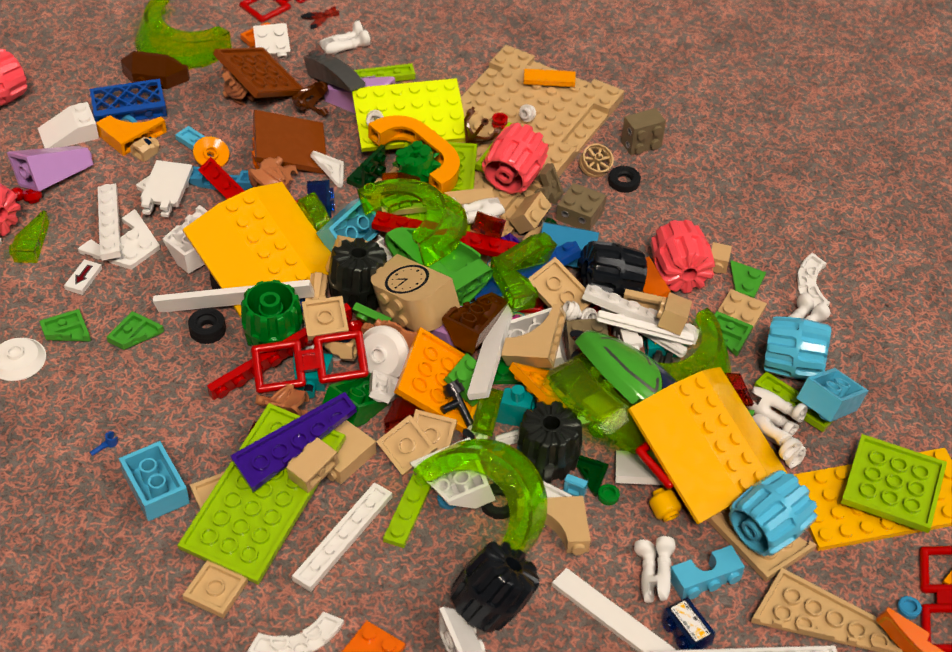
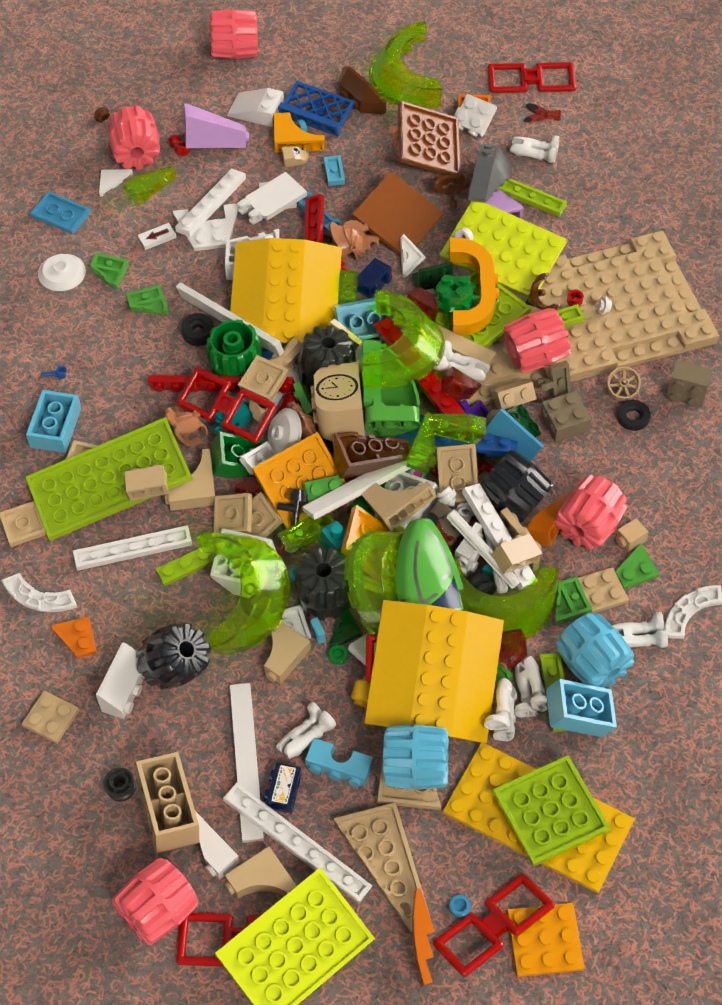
camera: 45 degrees right, 10 degrees up
(211, 146) = (334, 181): light orange dish -> none
(274, 451) = (127, 454): dark purple wing -> none
(549, 77) = (661, 284): light orange tile -> none

